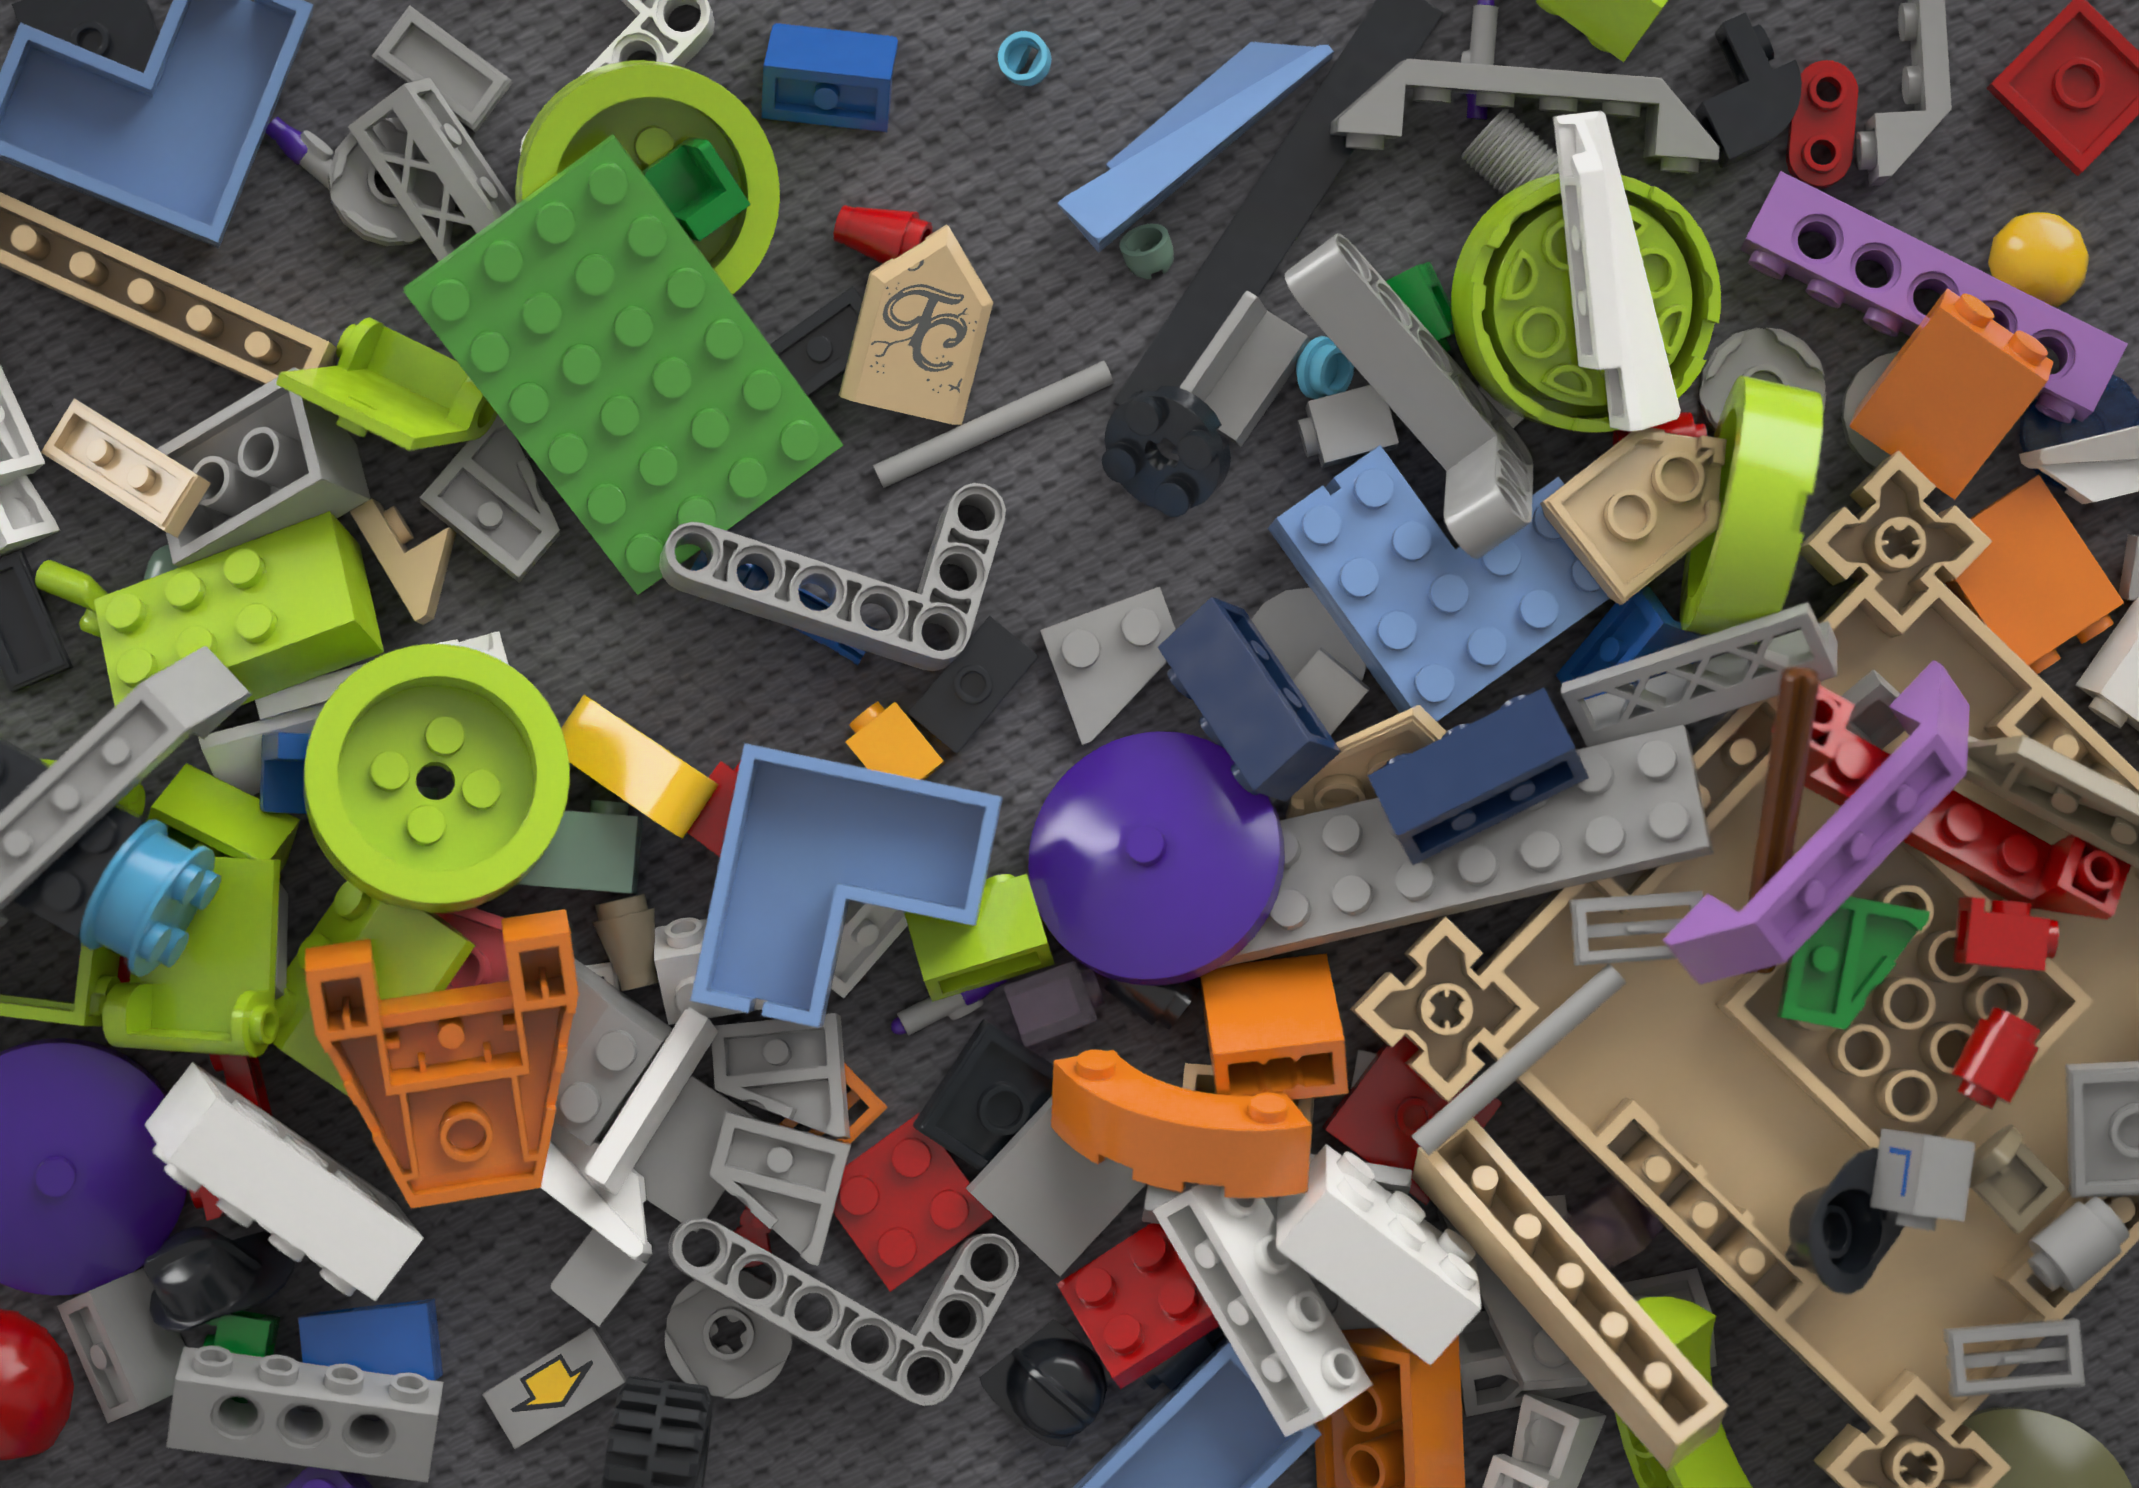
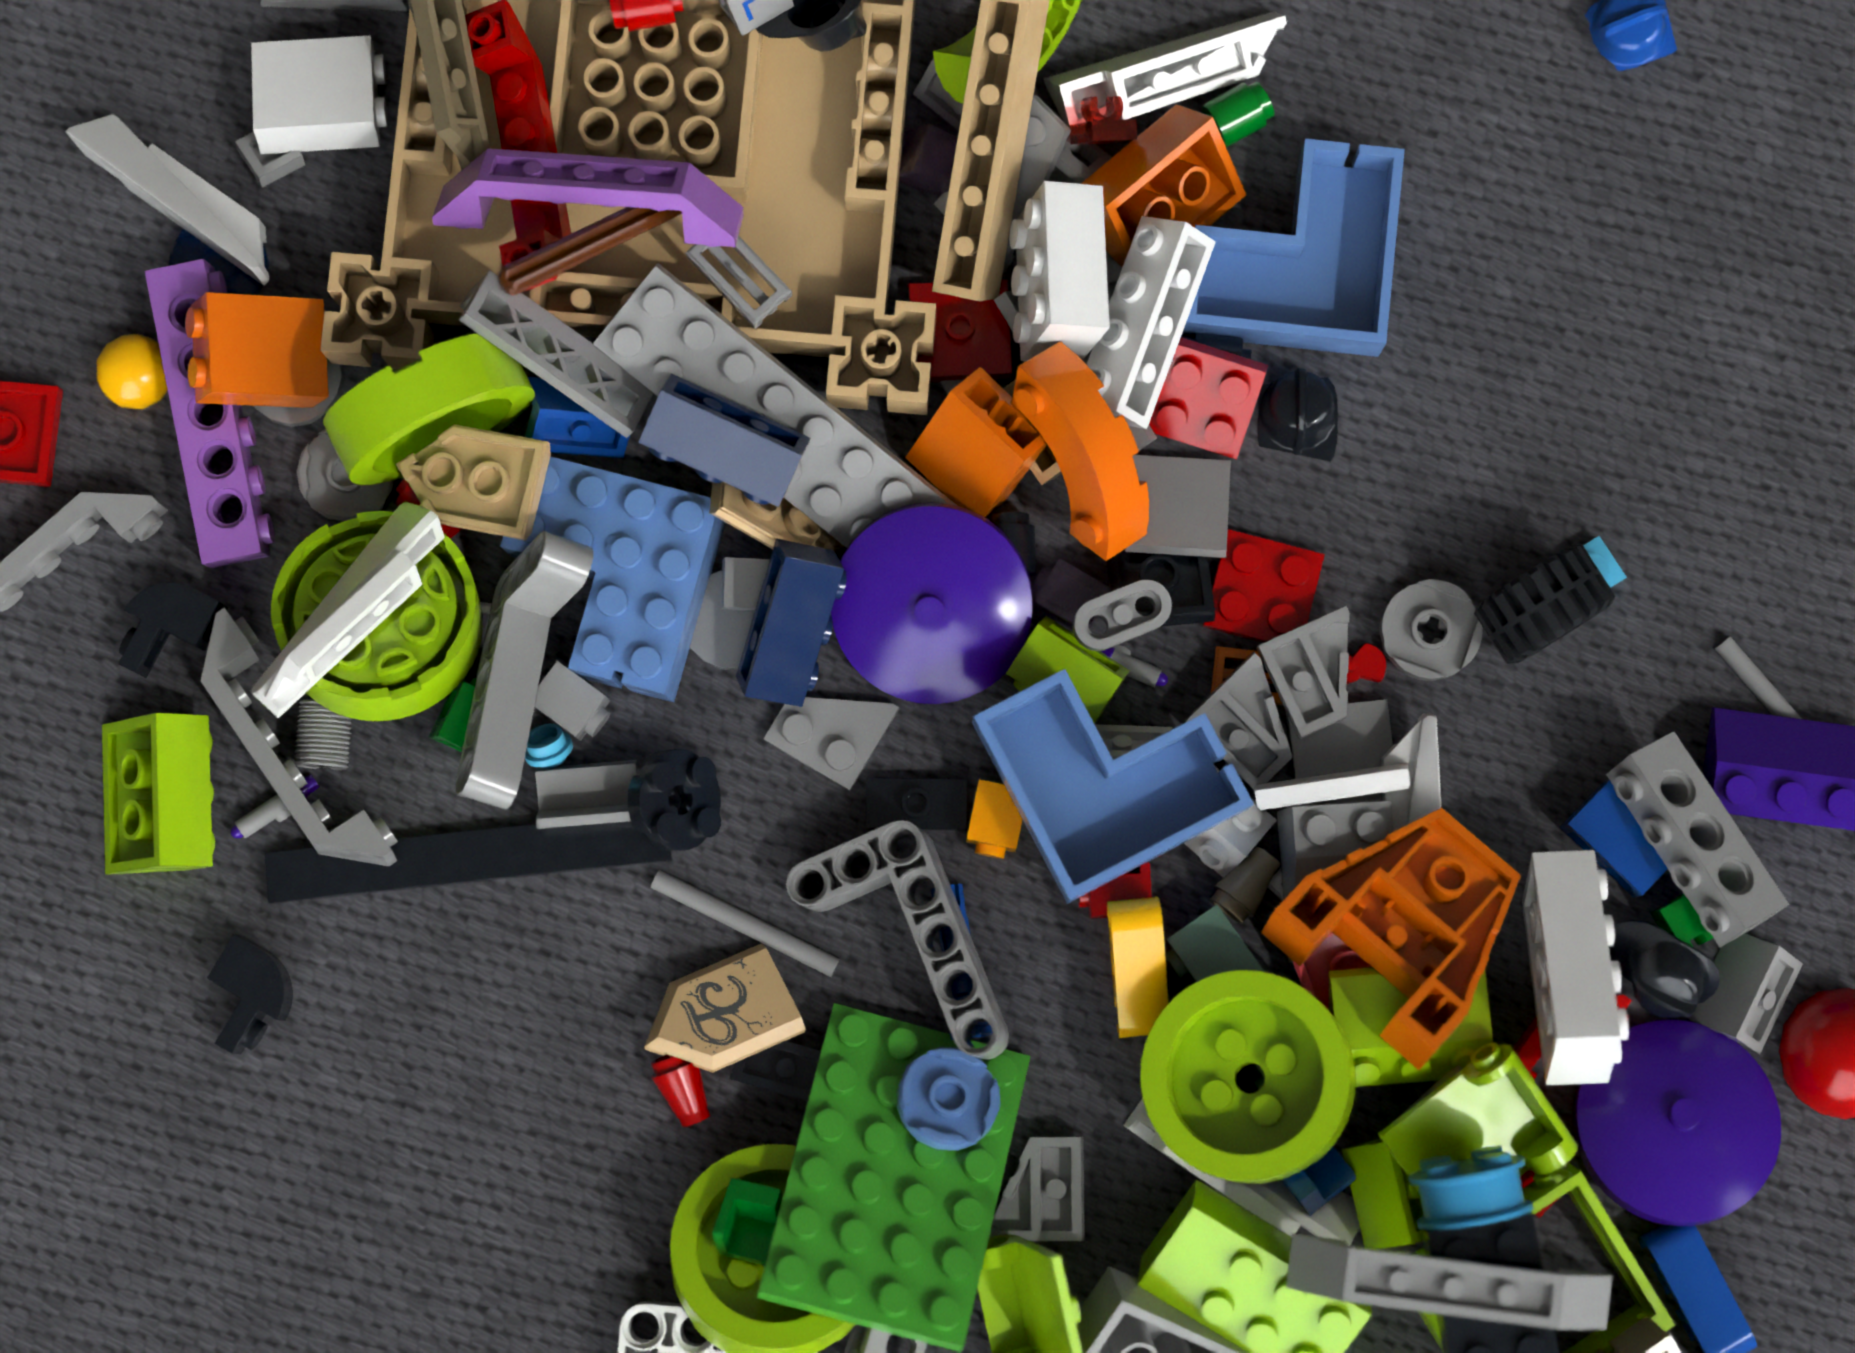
camera: 125 degrees left, 5 degrees down
(413, 572) = (1132, 1205): tan slope -> none
(554, 1387) = (1551, 709): light grey tile -> none
(597, 1277) = (1465, 734): light grey panel -> none
(656, 474) = (948, 1099): none -> medium blue tile
(828, 77) = (609, 1203): blue panel -> none
(847, 1316) = (1363, 563): light grey beam -> none
(987, 1031) = (1120, 615): none -> light grey plate
(1014, 55) = (502, 1098): medium azure hinge -> none
(1147, 250) = (555, 924): sand green hinge -> none
(1190, 137) = (468, 946): medium blue wedge -> none
(1499, 1426) = (1100, 128): none -> clear red tile
(1518, 1059) = (876, 281): light grey bar -> none
(1823, 124) = (150, 565): red plate -> none
(1846, 961) = (659, 132): green wing -> none
(1871, 713) = (485, 242): light grey plate -> none
(2004, 935) = (569, 55): red brick -> none
(2035, 577) = (328, 213): orange brick -> none

